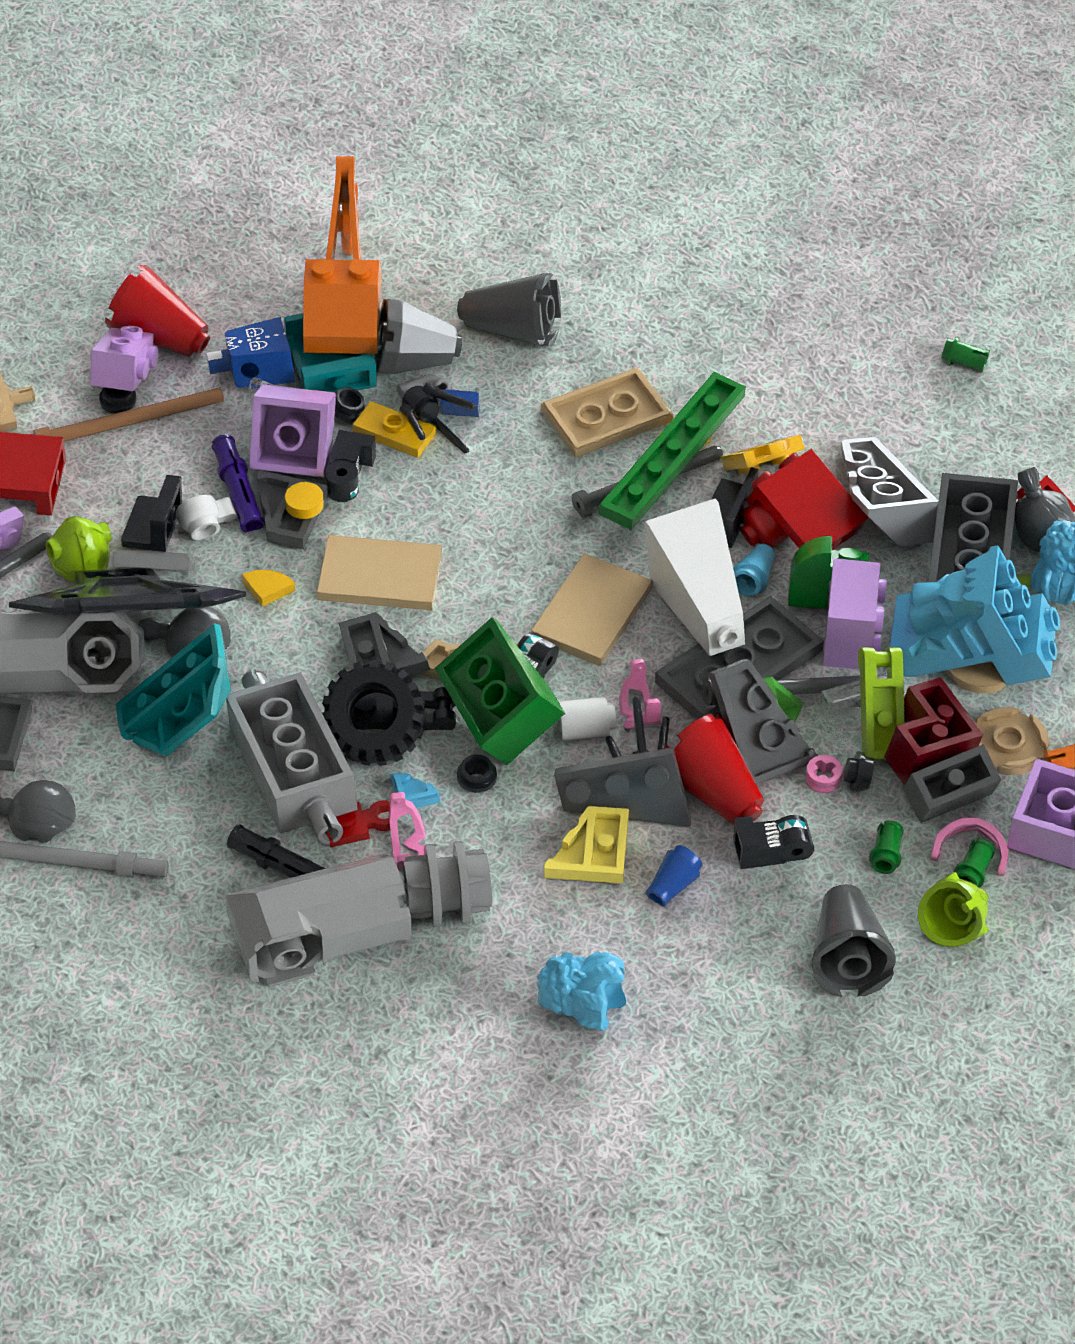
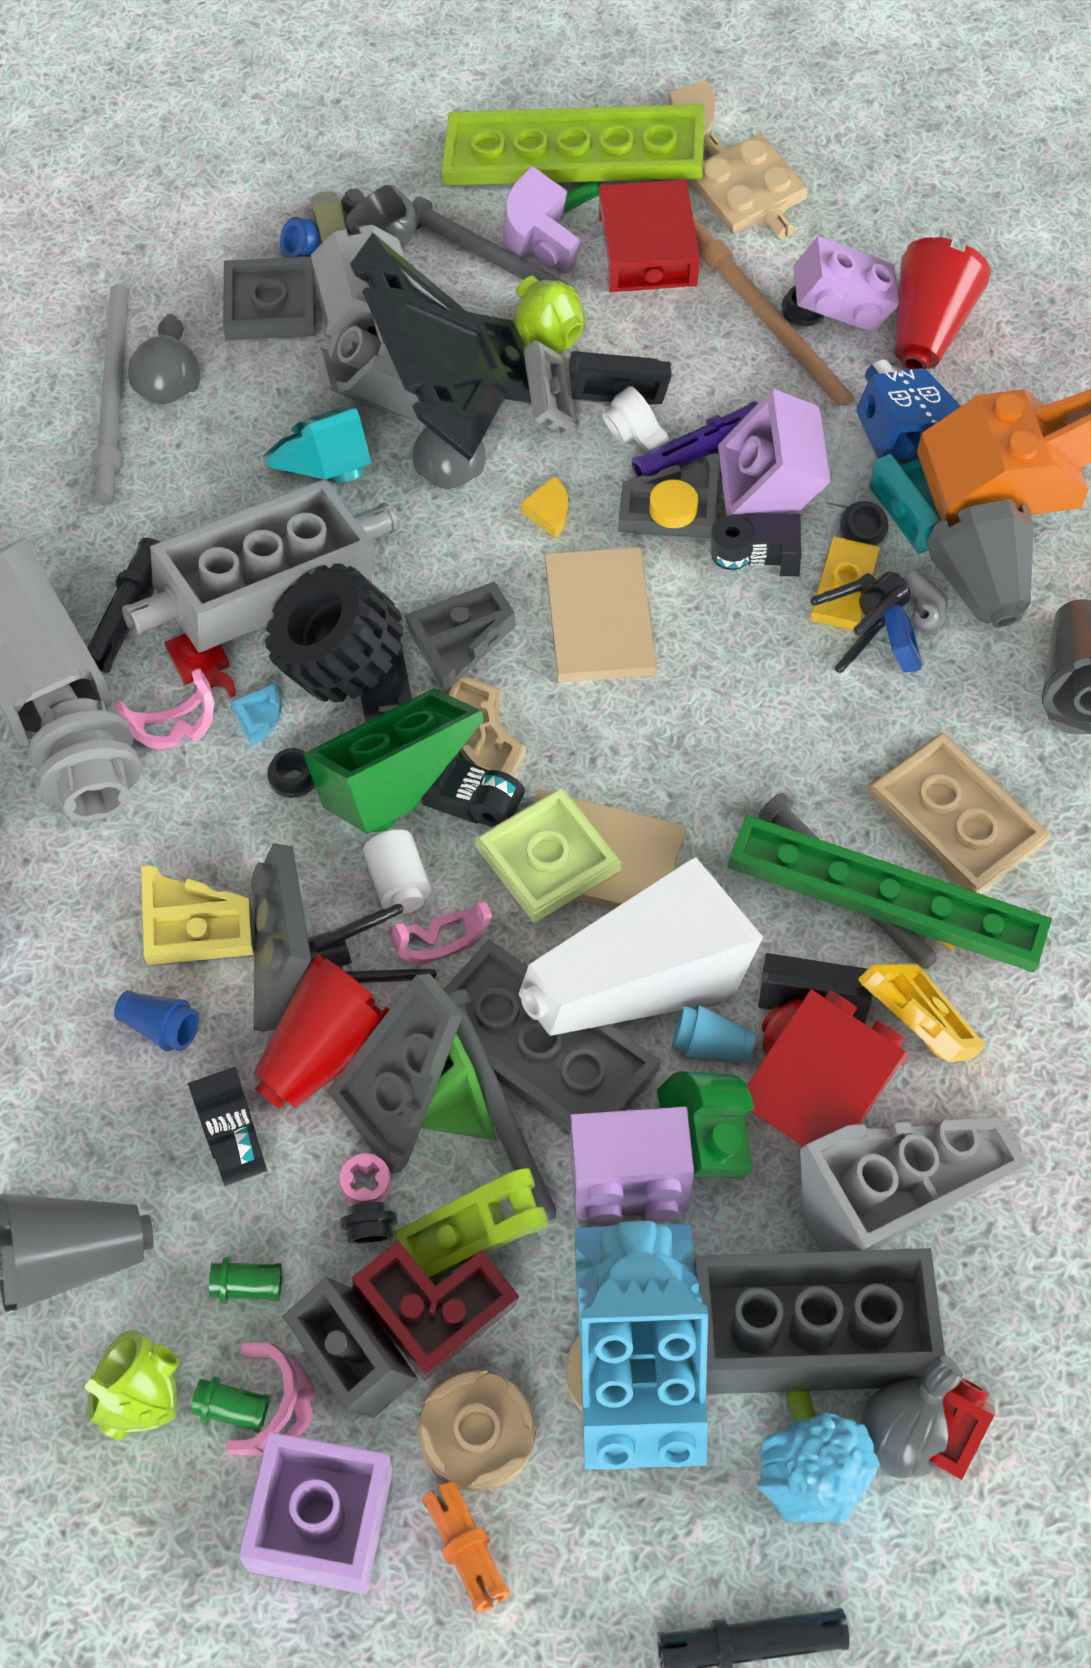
camera: 80 degrees right, 10 degrees up
(593, 629) = (547, 854): none -> yellowish green tile

